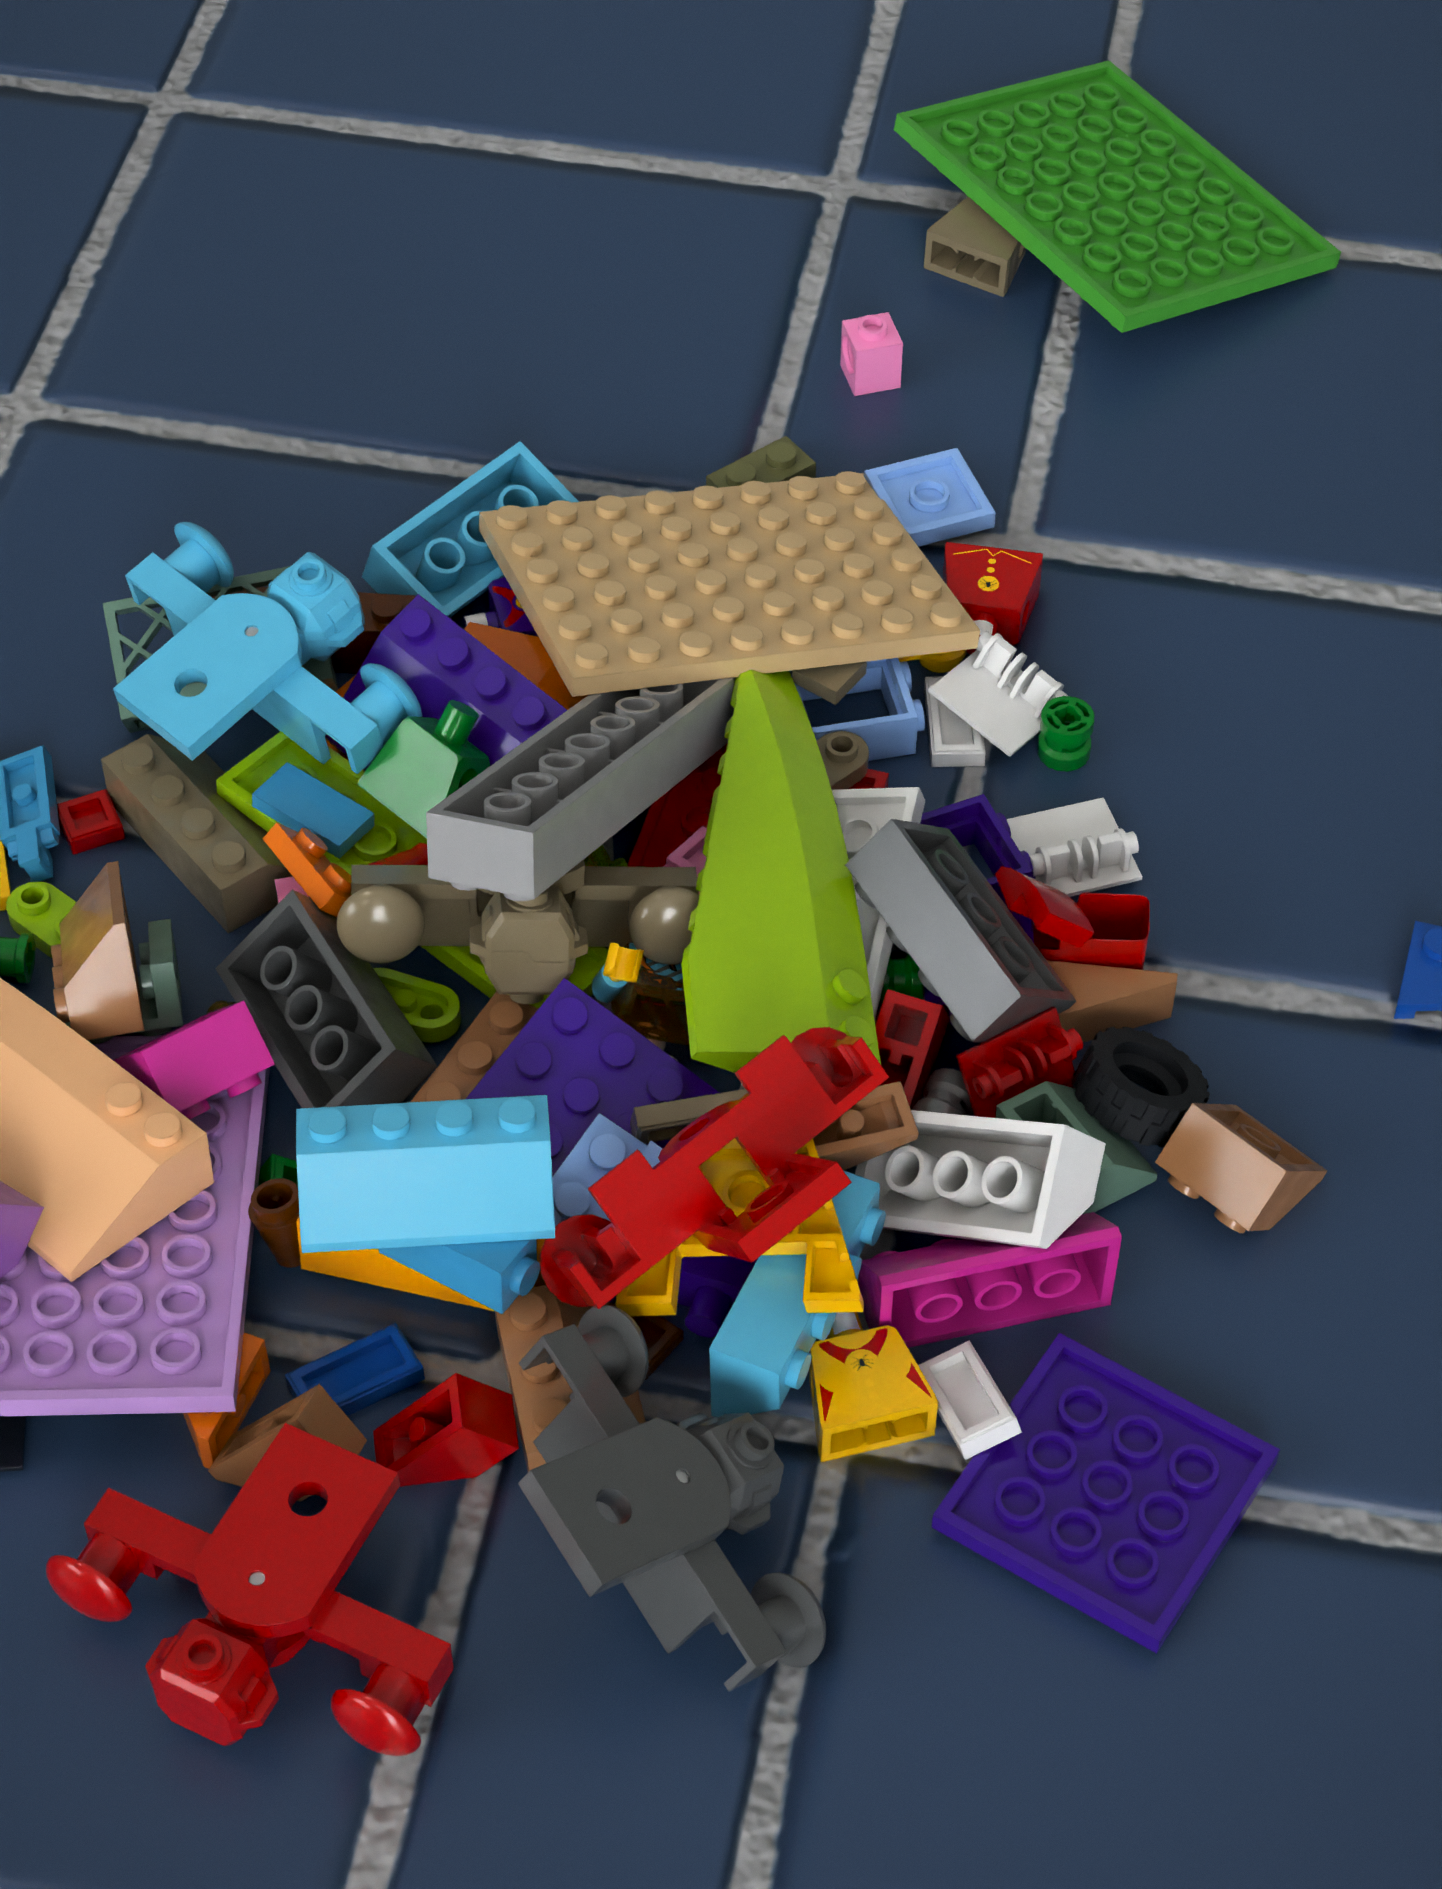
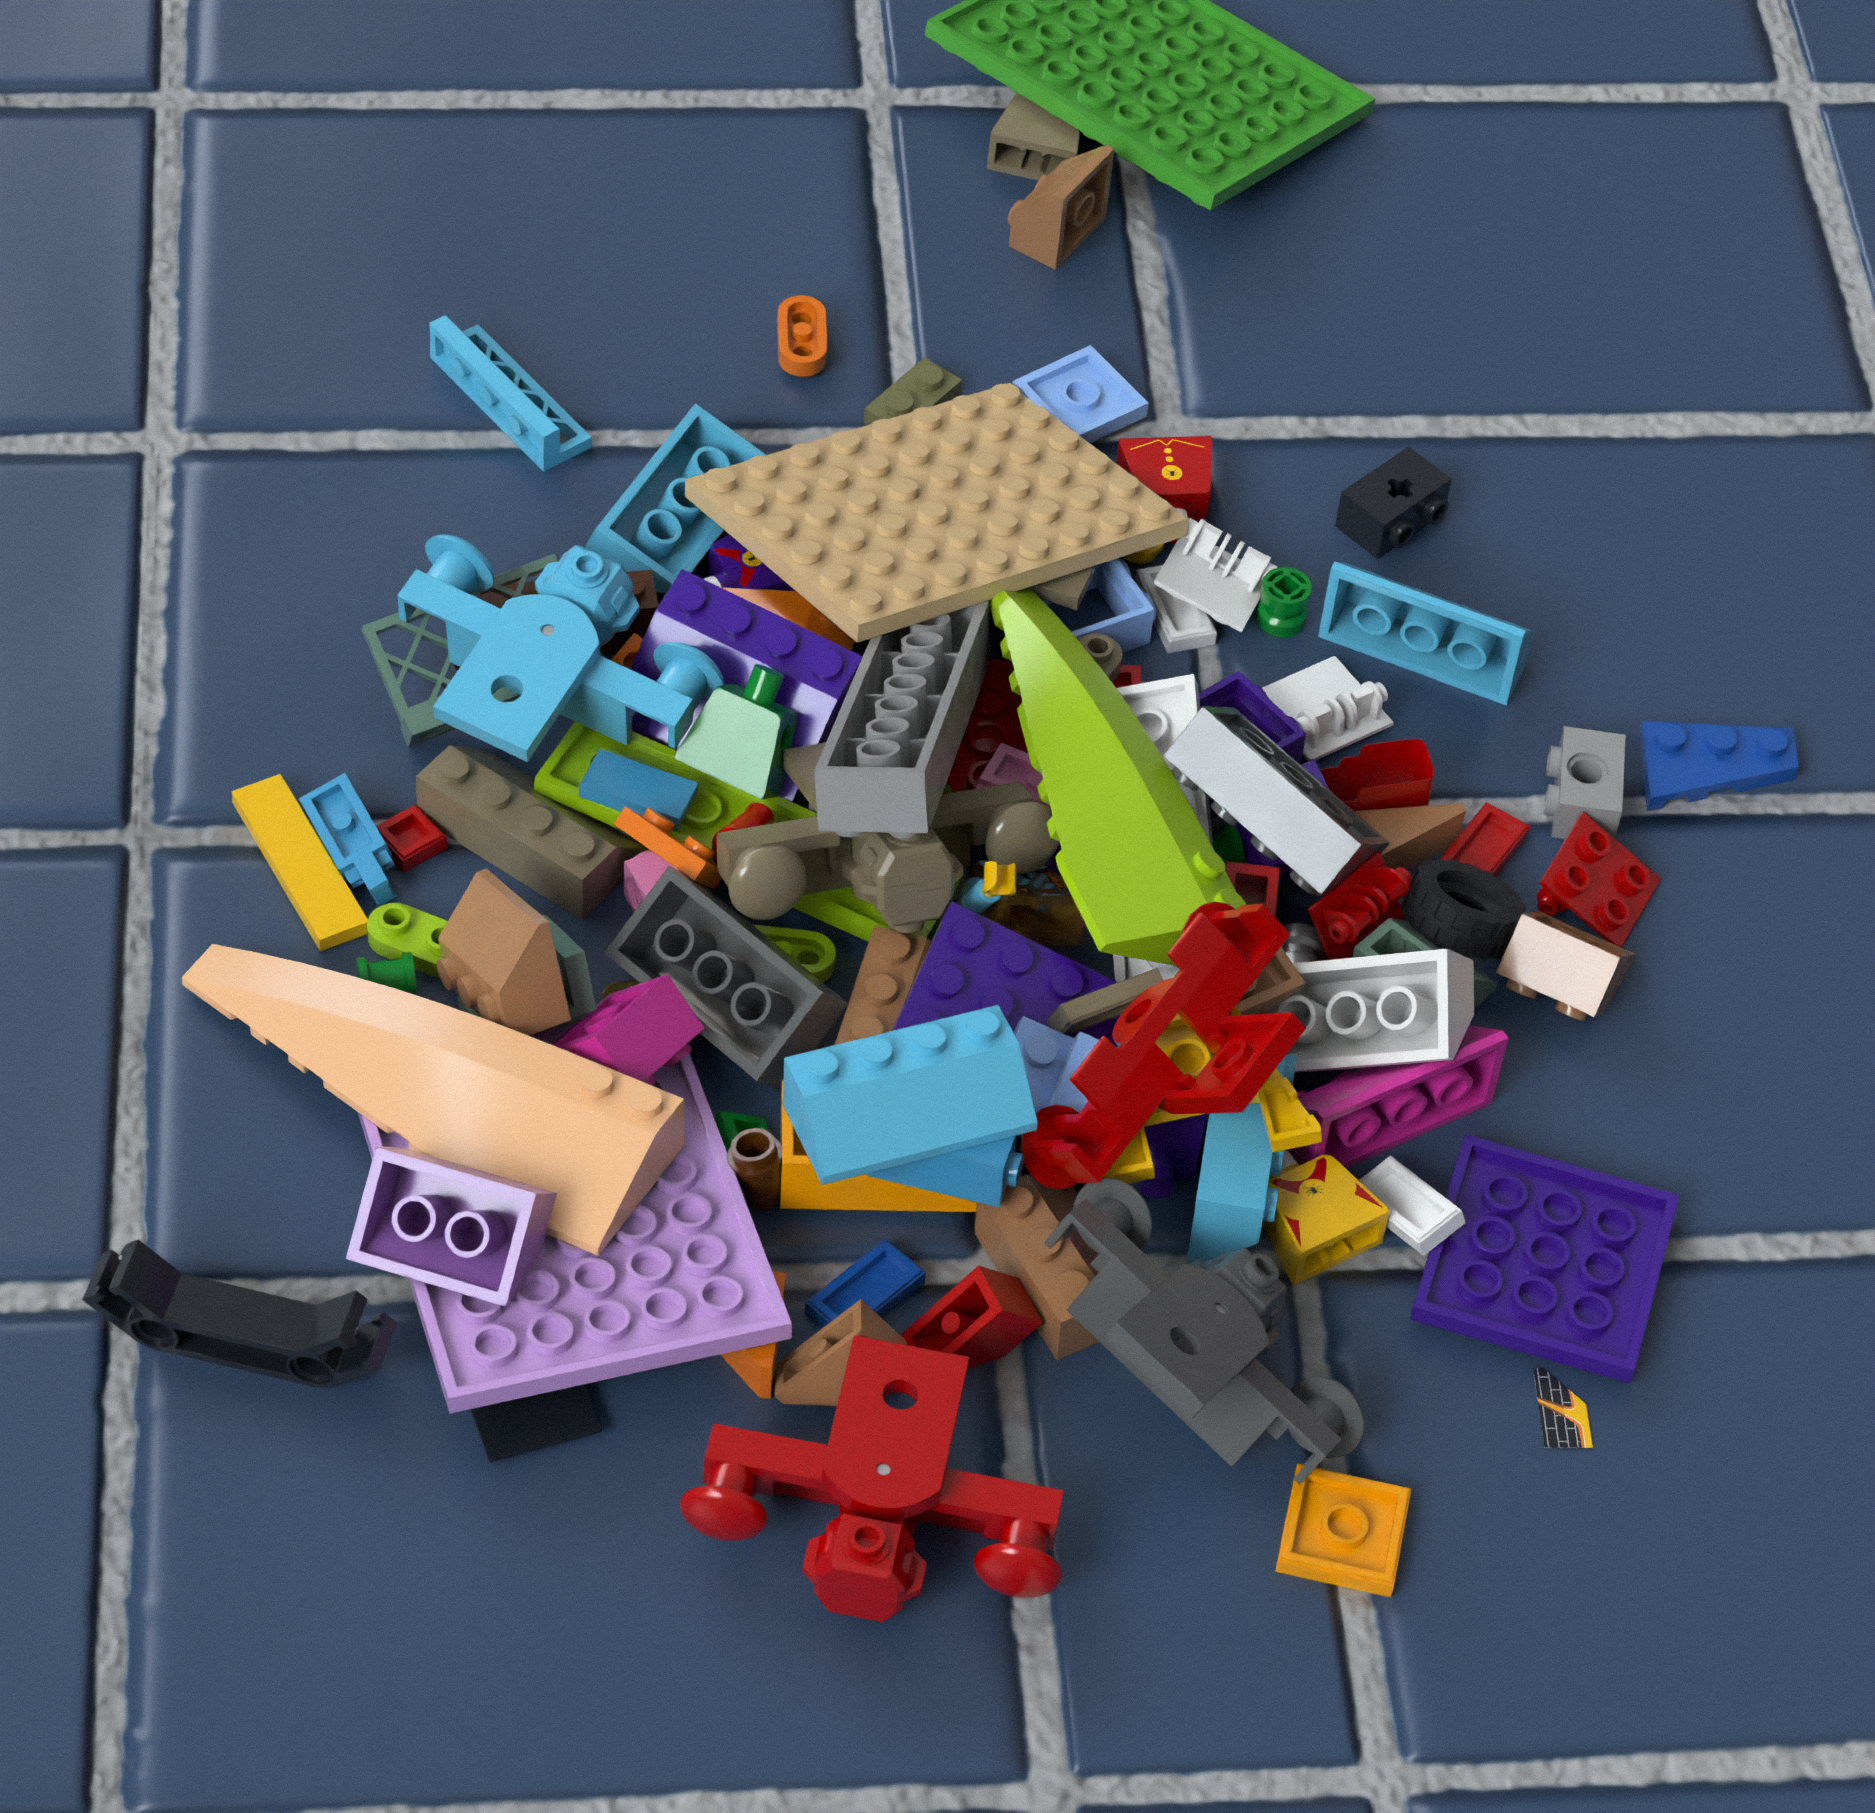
camera: 20 degrees left, 0 degrees up
(356, 417) = (506, 403): none -> medium azure fence
(671, 397) = (802, 336): none -> orange plate
(772, 1755) = (1344, 1531): none -> light orange tile
(871, 354) = (977, 264): bright pink brick -> none
(978, 313) = (1063, 208): none -> medium nougat slope
(1047, 907) = (1338, 763): red slope -> none
(1068, 1671) = (1561, 1414): none -> sticker
(1202, 1020) = (1489, 840): none -> red tile
(1204, 788) = (1424, 633): none -> medium azure slope
(1219, 651) = (1393, 503): none -> black brick
(1306, 1084) = (1597, 881): none -> red hinge
(1328, 978) = (1586, 780): none -> light grey brick

